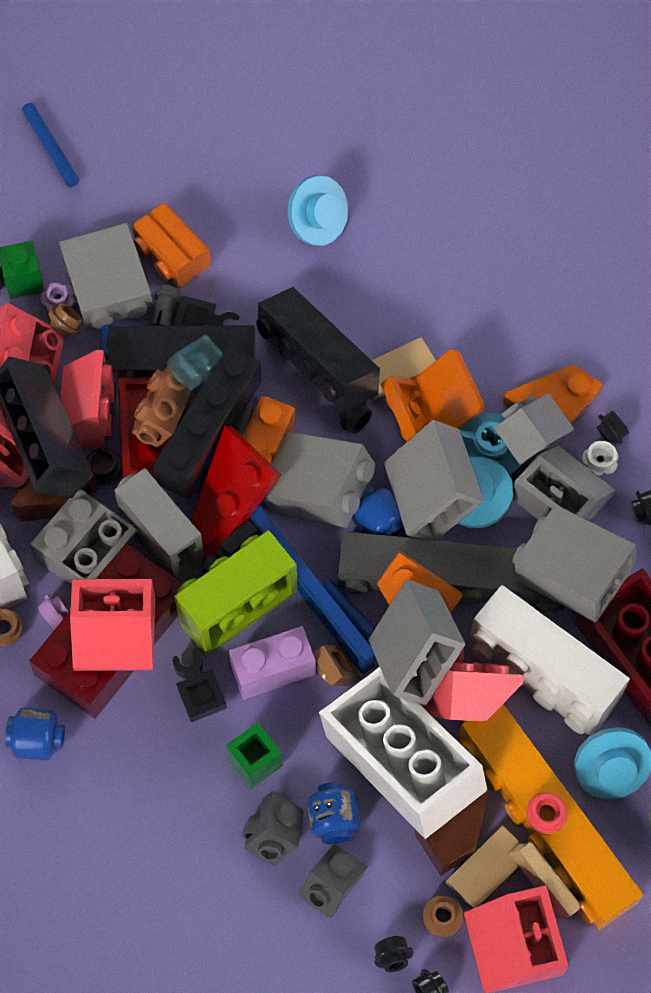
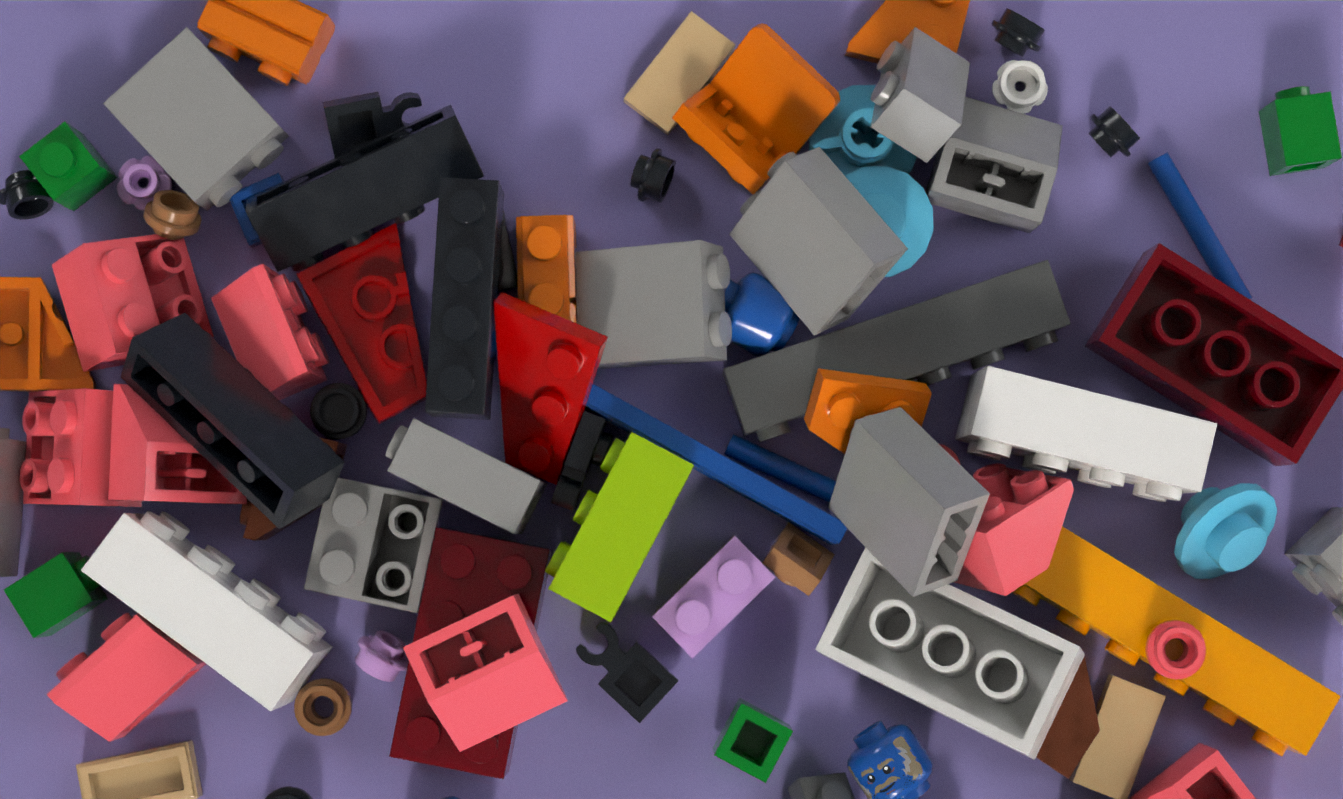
camera: 25 degrees left, 20 degrees up
(162, 409) = (387, 289): nougat brick -> none
(165, 309) = (307, 130): dark grey pin -> none
(195, 362) = (406, 219): clear light blue plate -> none
(318, 349) = (560, 107): black brick -> none
(542, 874) = (1203, 729): tan tile -> none
(574, 562) = (1067, 281): light grey brick -> none

